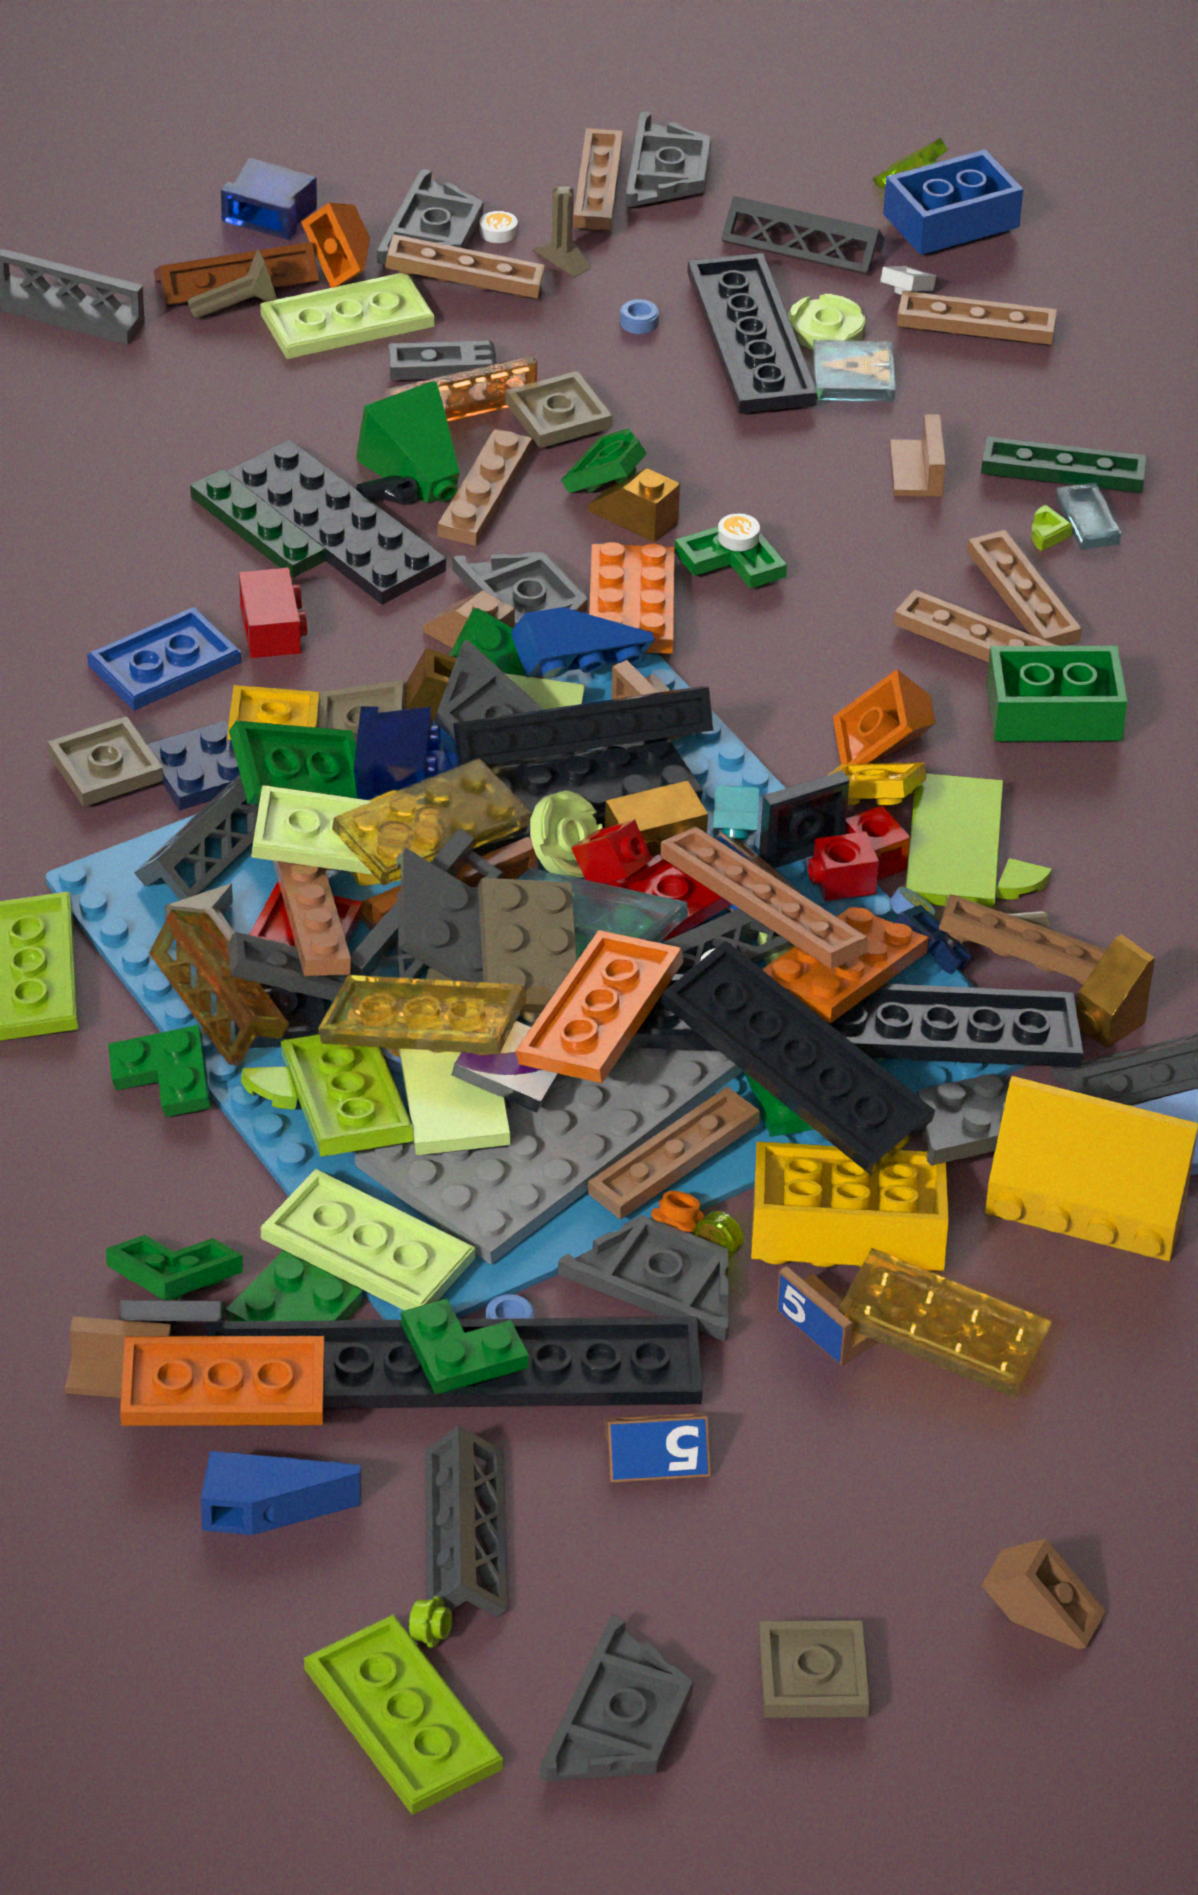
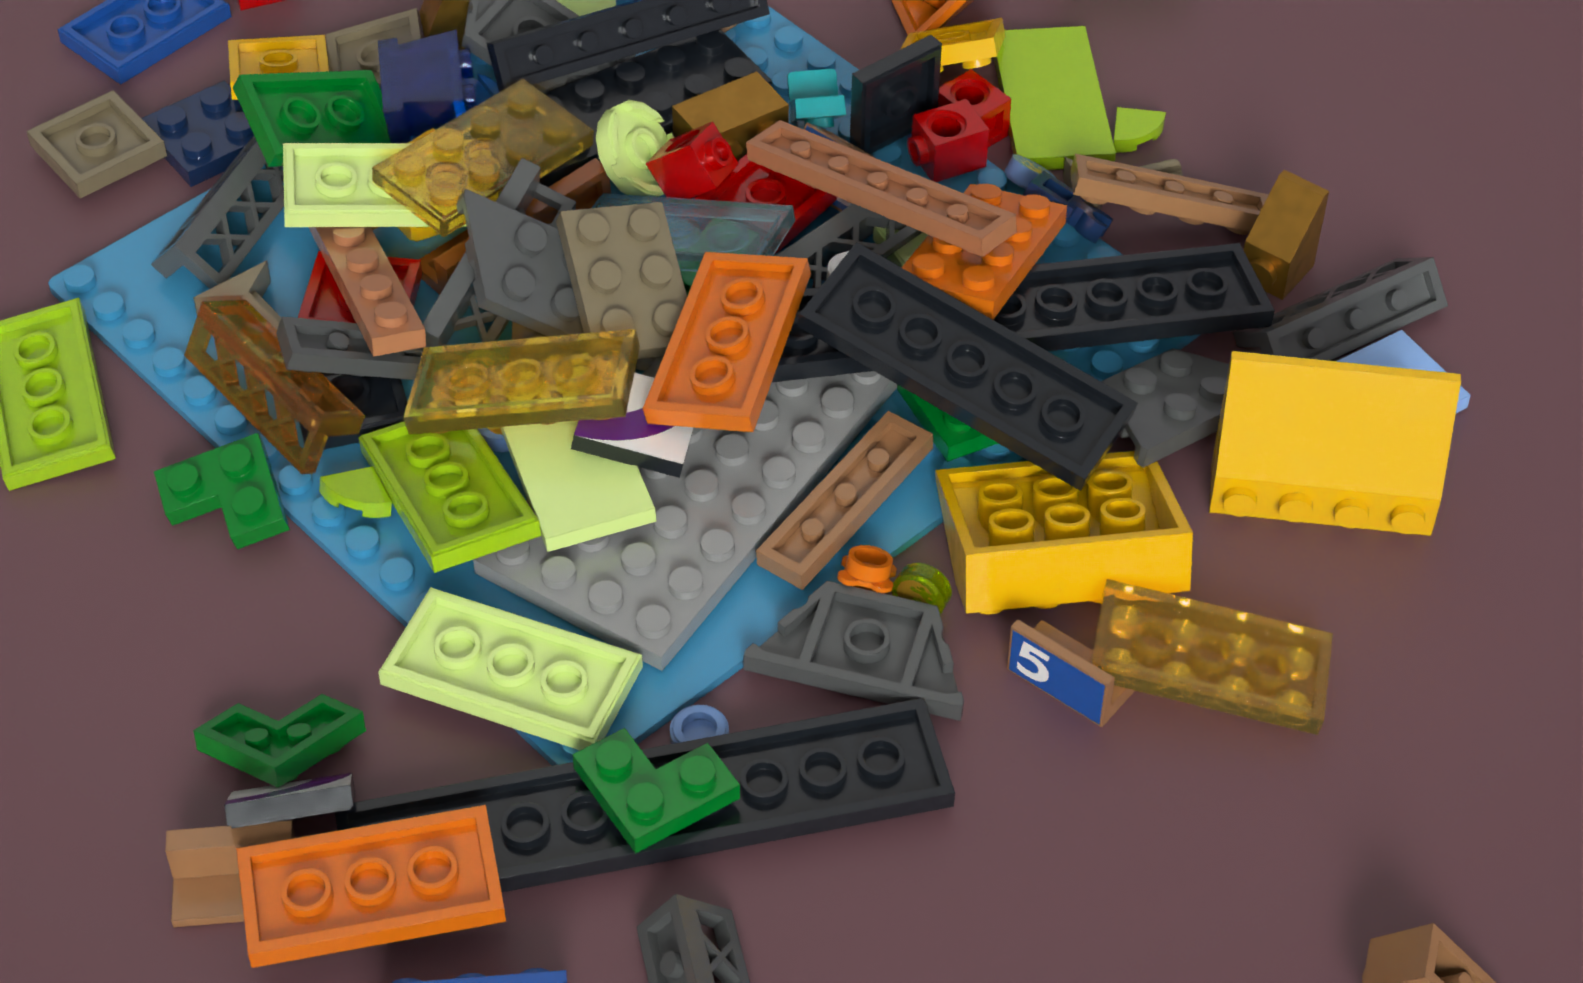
camera: 10 degrees left, 5 degrees up
(295, 1292) = (434, 749): green plate -> none
(657, 1447) = (918, 871): blue panel -> none

